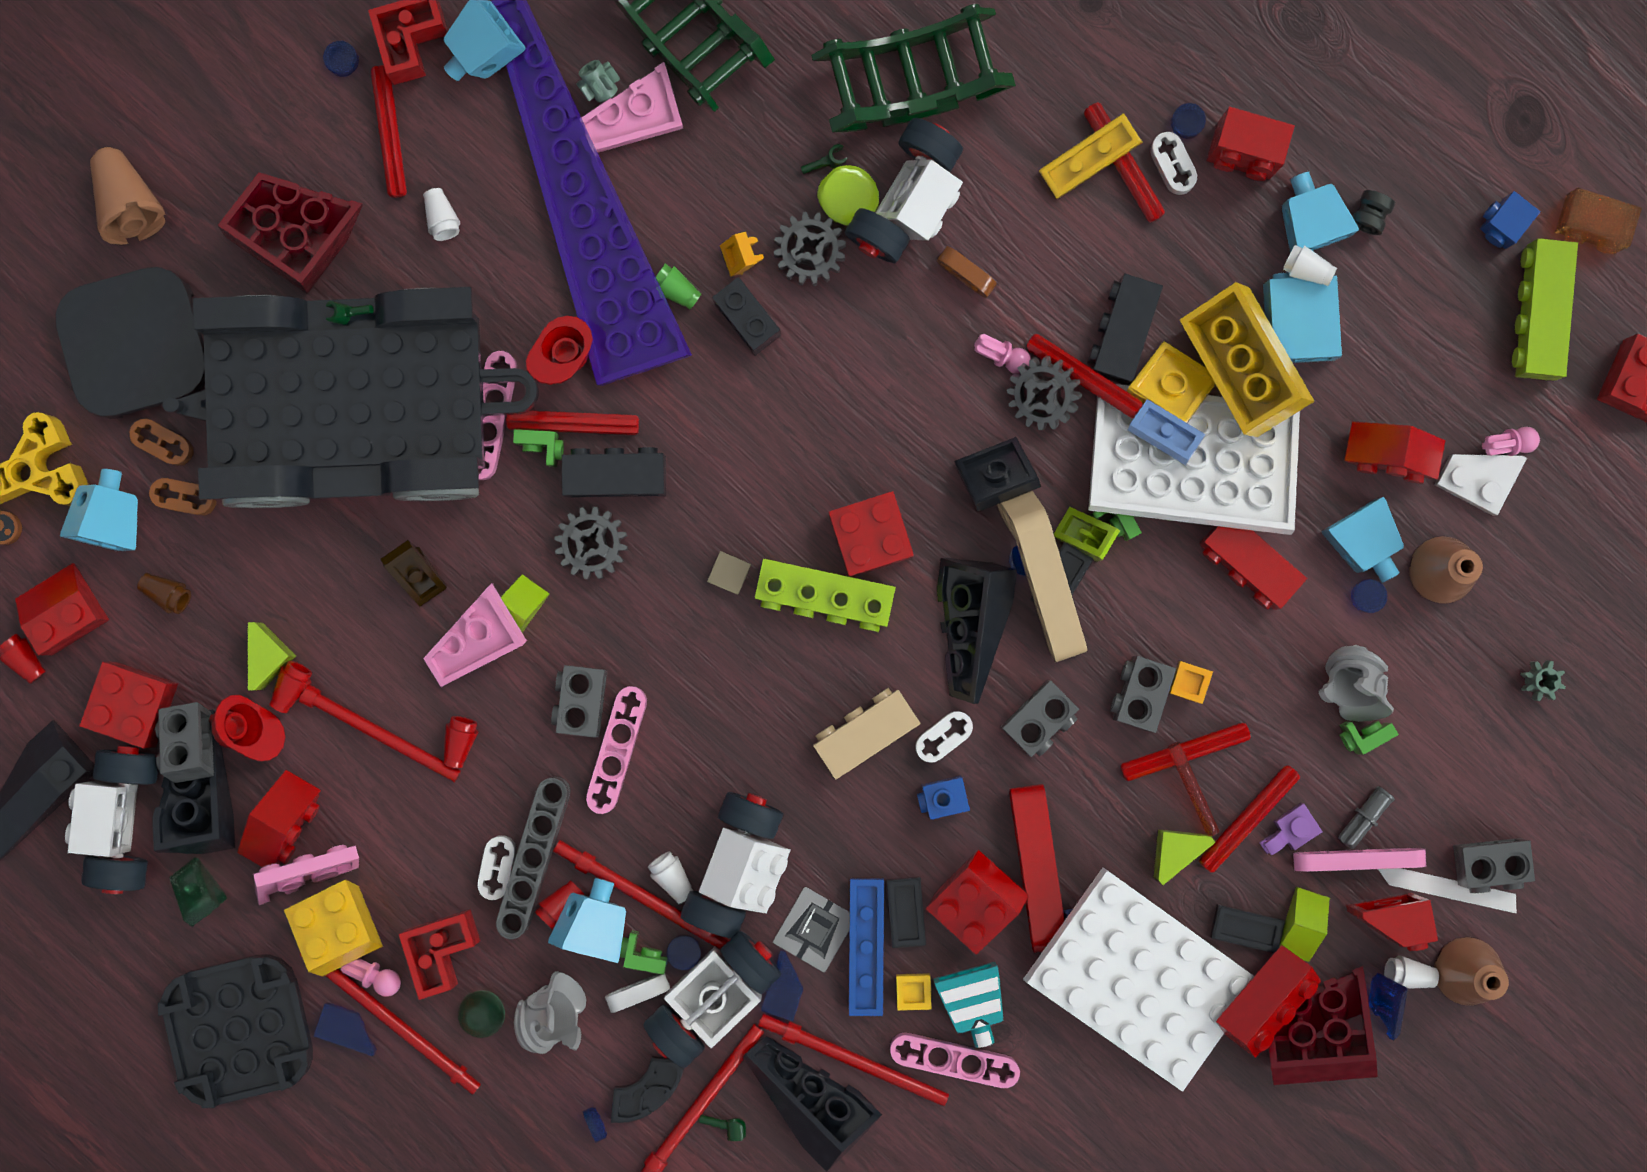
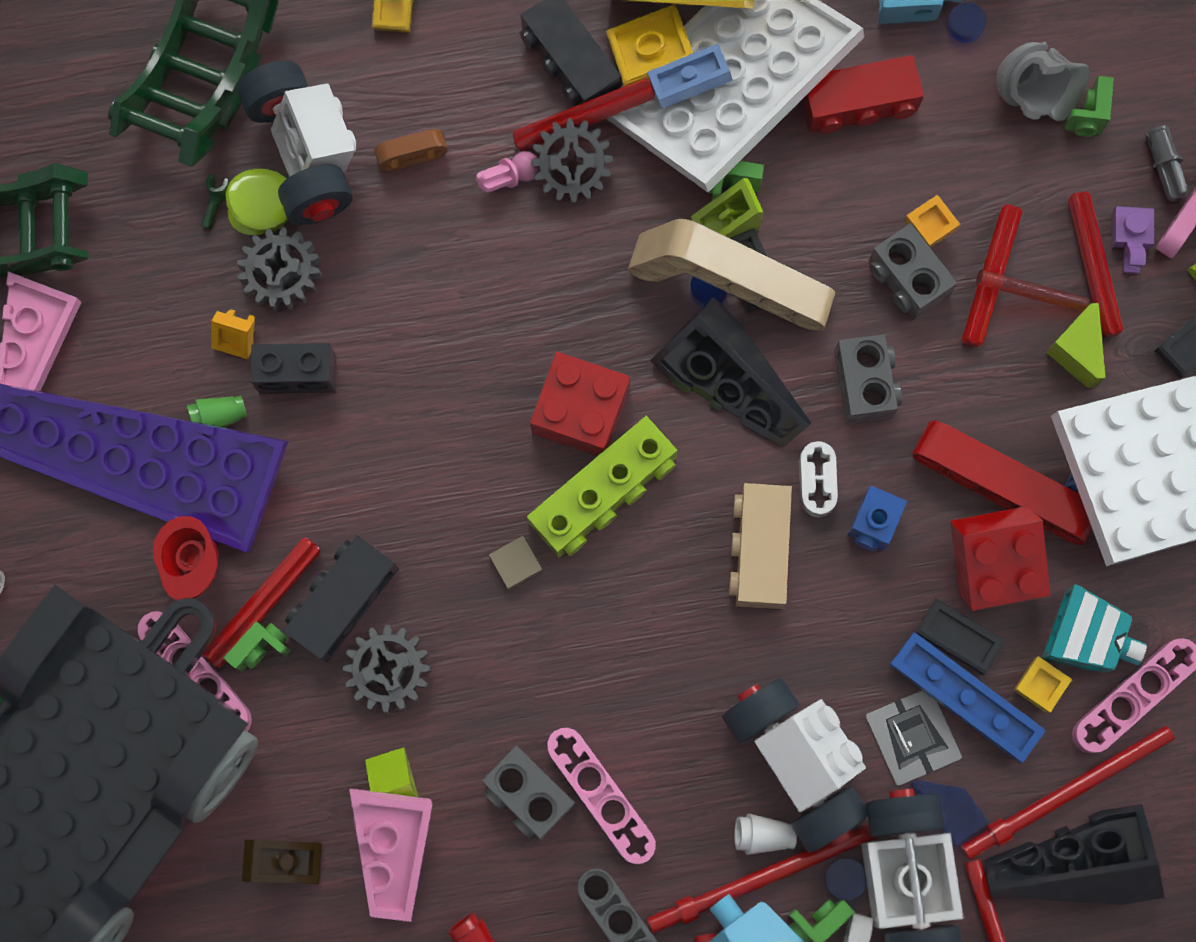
camera: 50 degrees left, 10 degrees down
(997, 474) = (613, 252): black tile -> none

